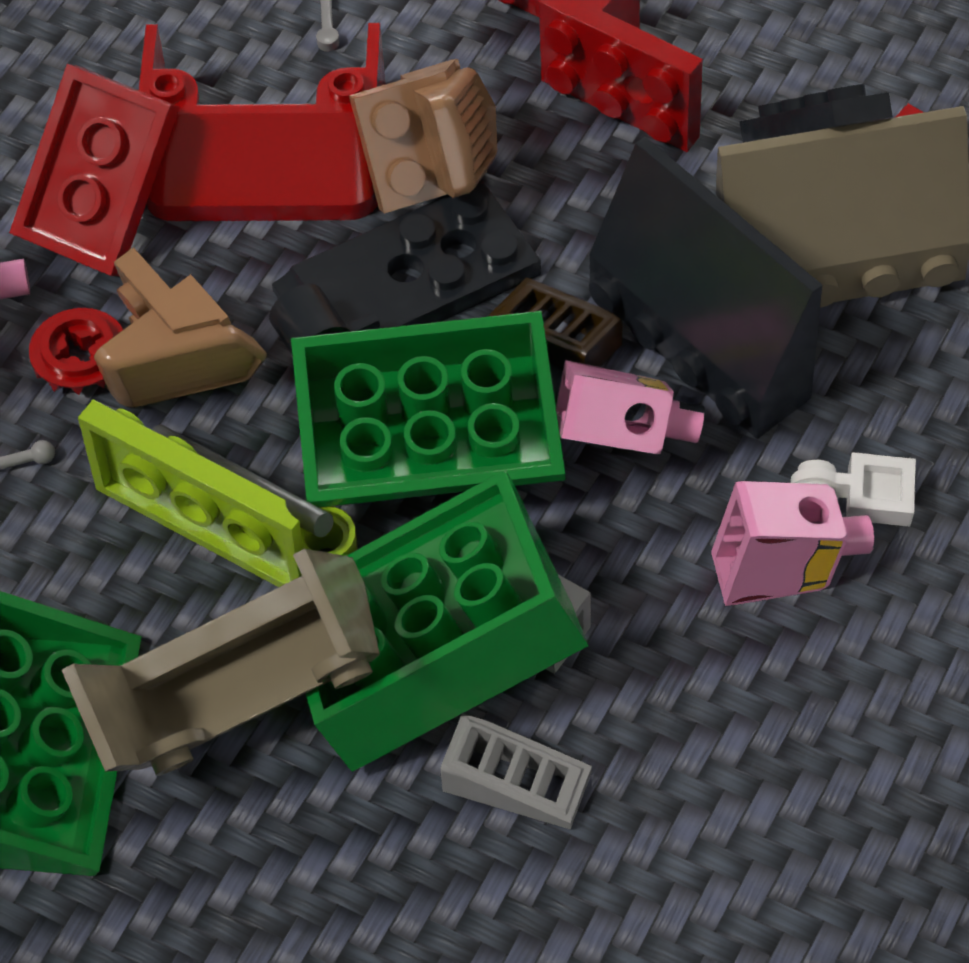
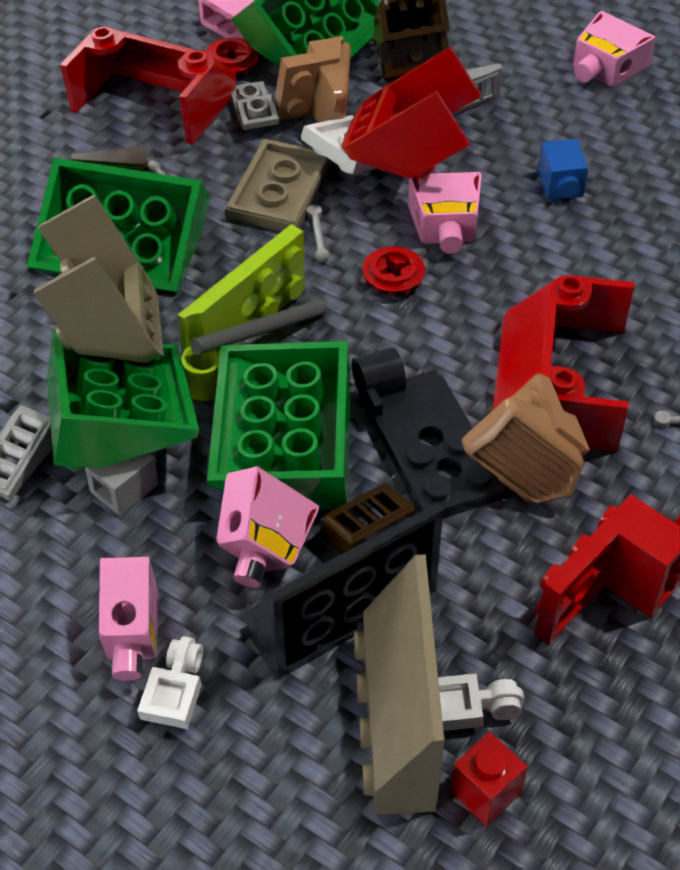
camera: 95 degrees right, 5 degrees down
(94, 169) = (520, 263): red plate -> none
(175, 340) = (381, 296): medium nougat piece -> none
(817, 112) = (492, 670): black plate -> none

